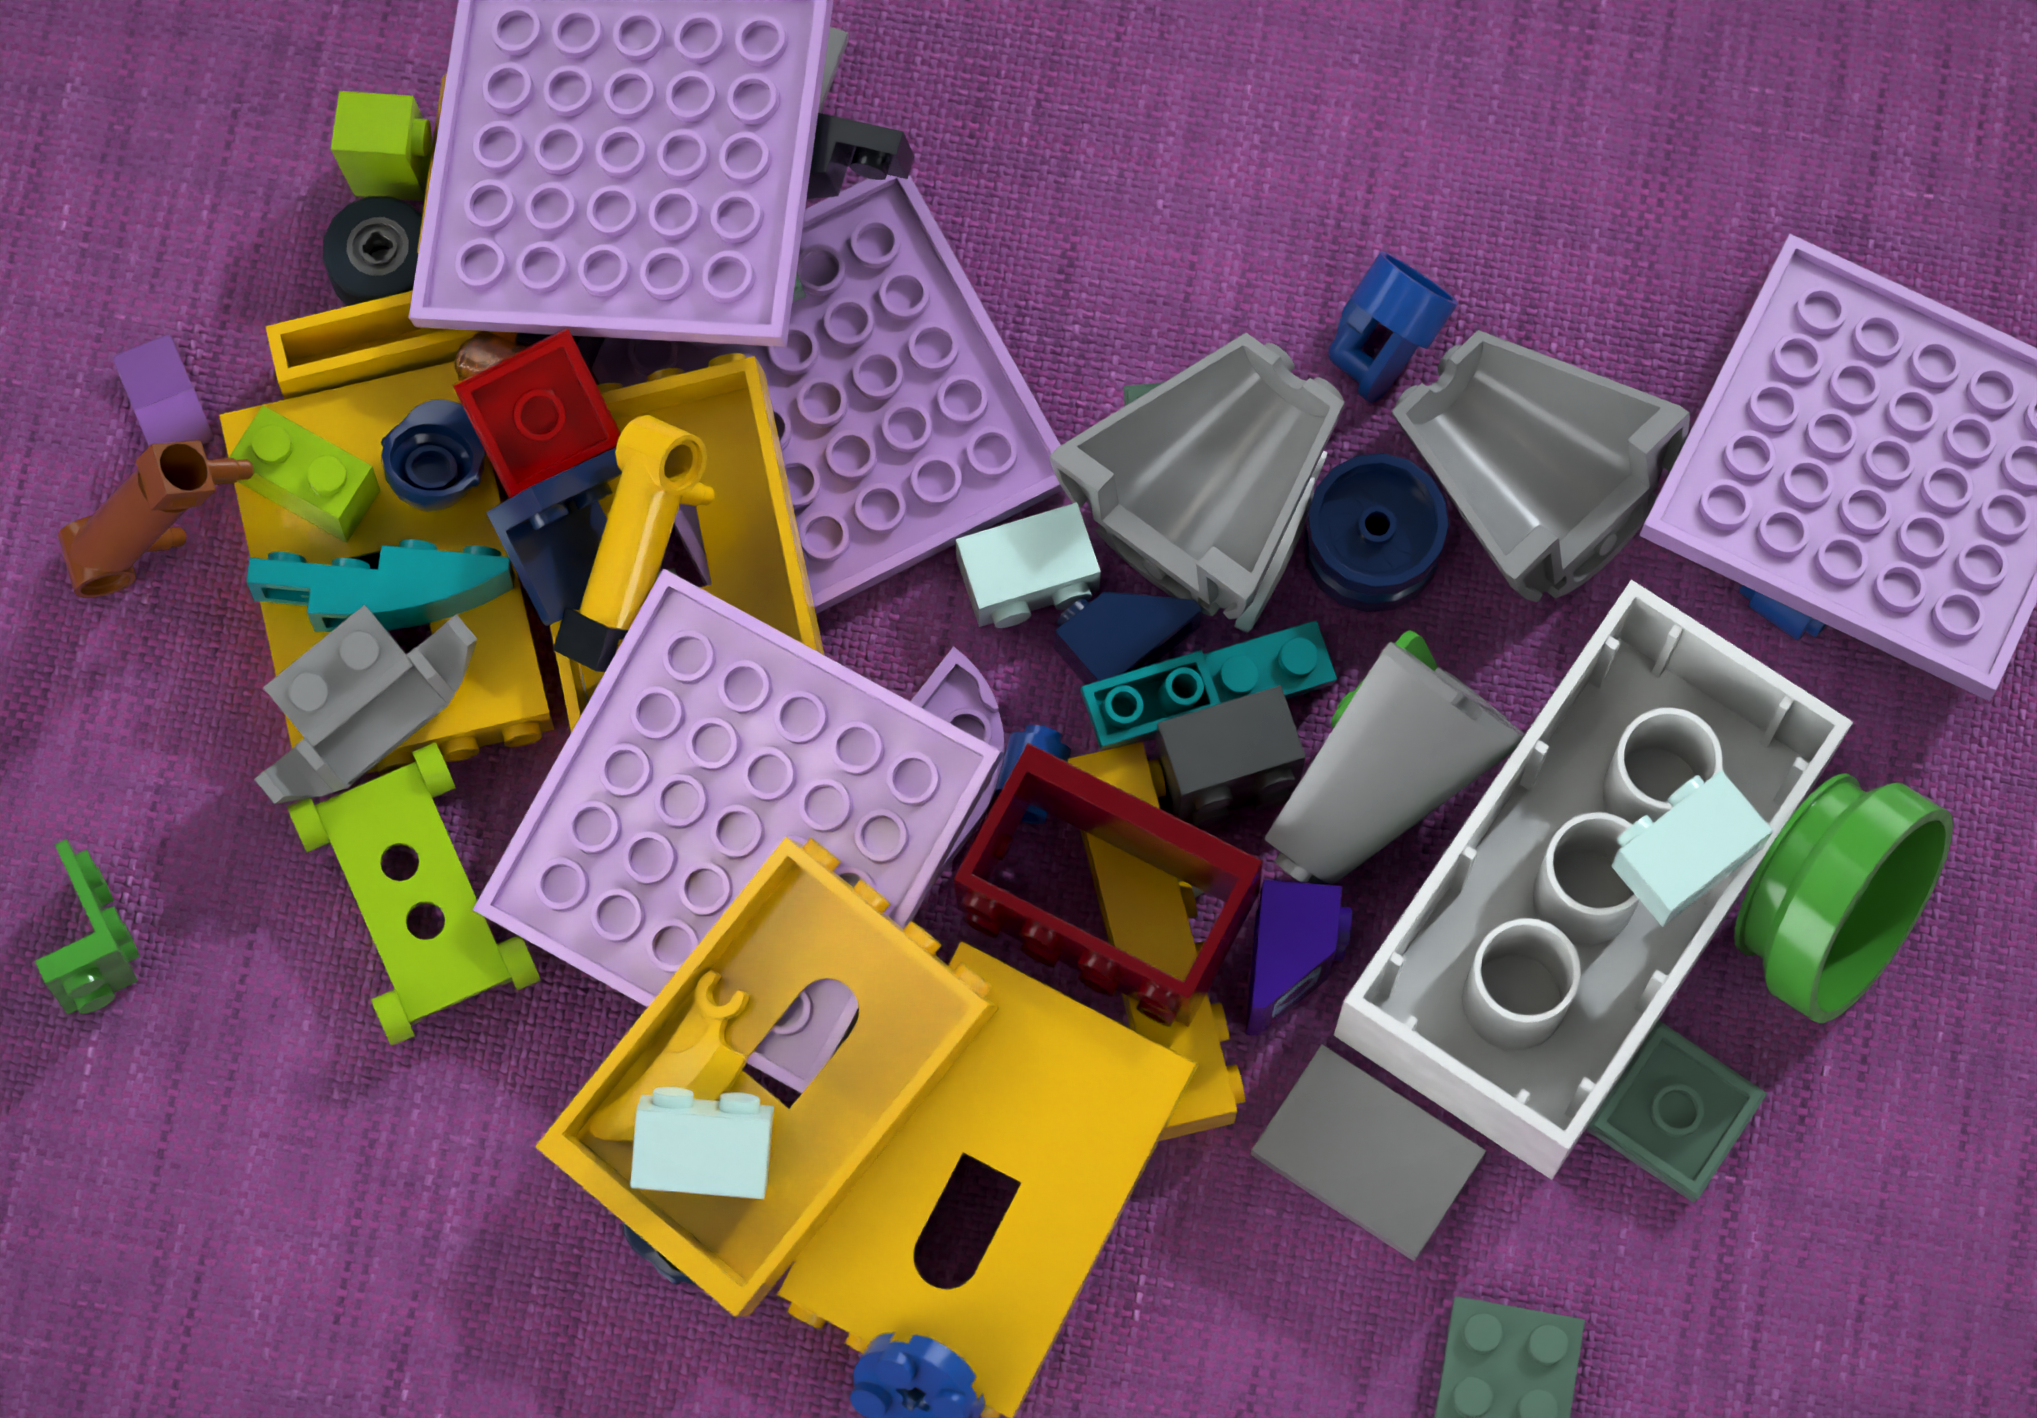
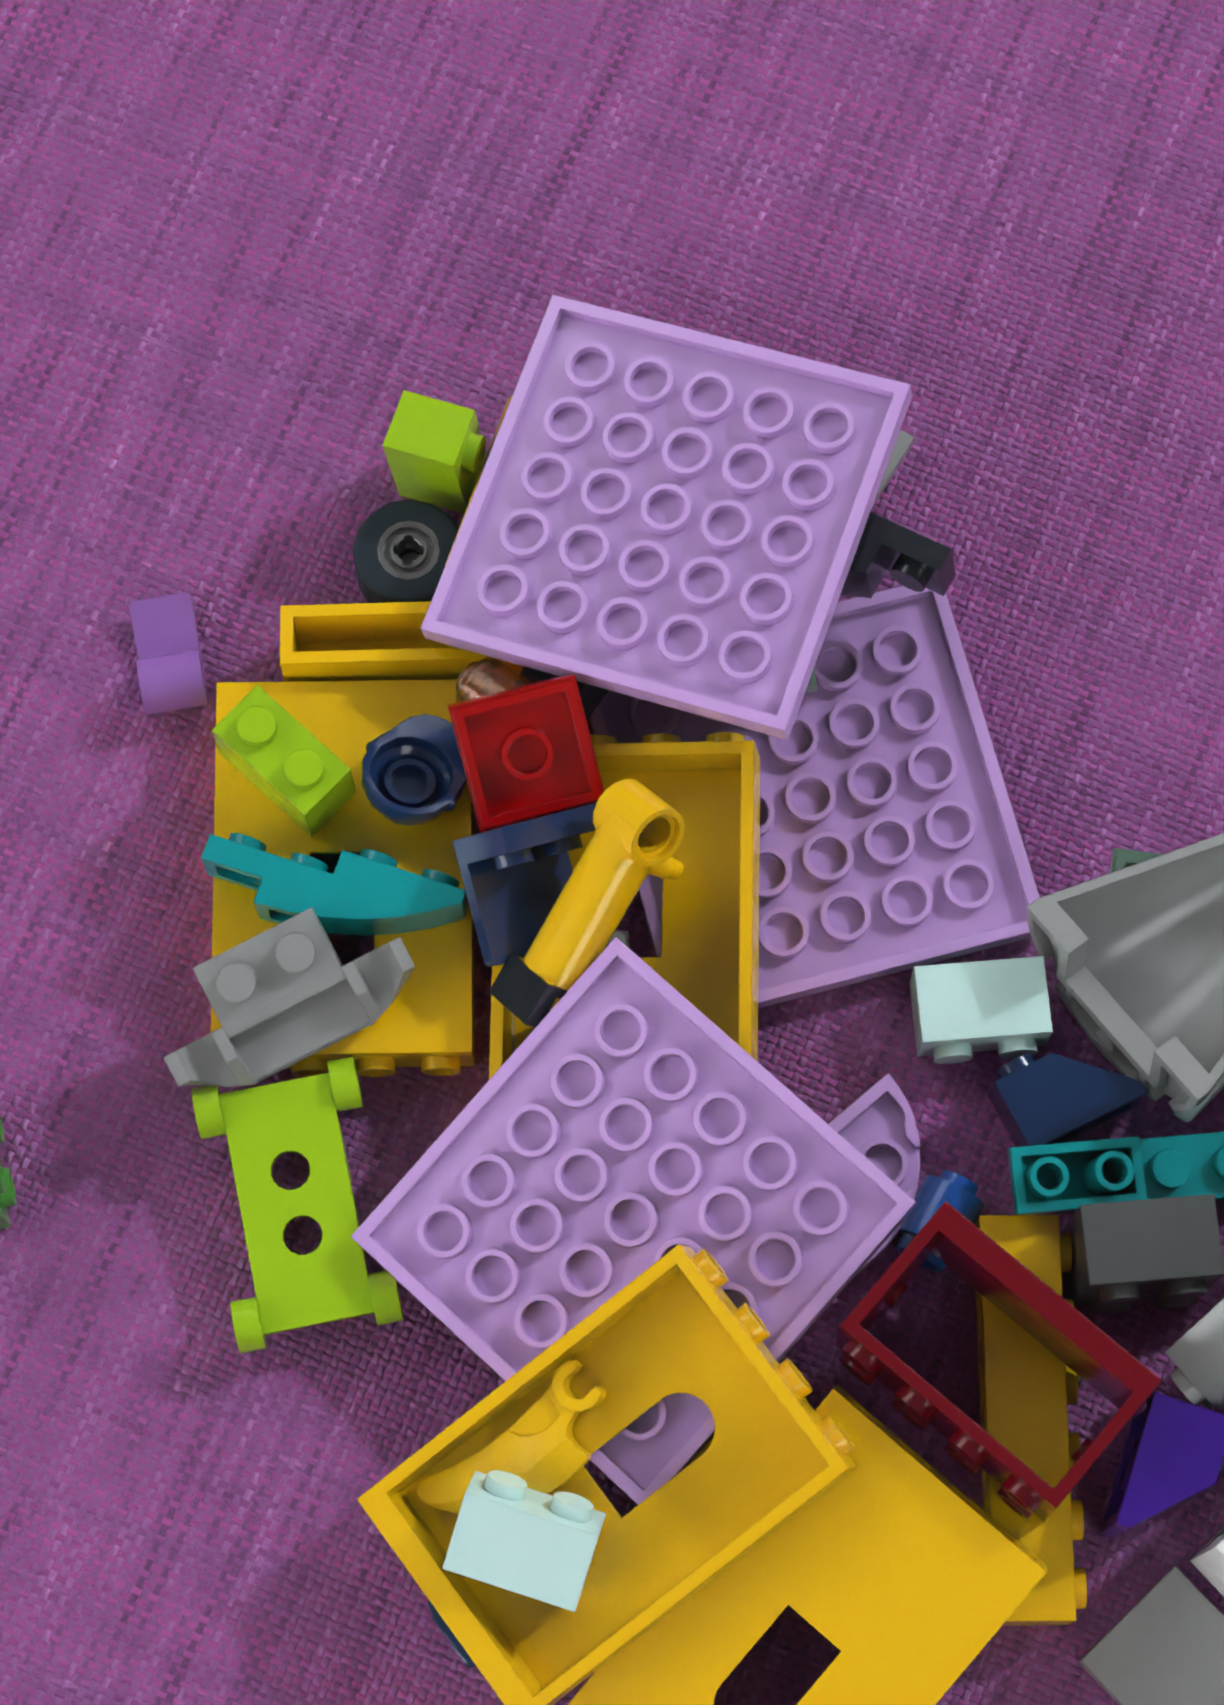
camera: 15 degrees right, 0 degrees up
(141, 513) = (117, 765): dark orange piece -> none

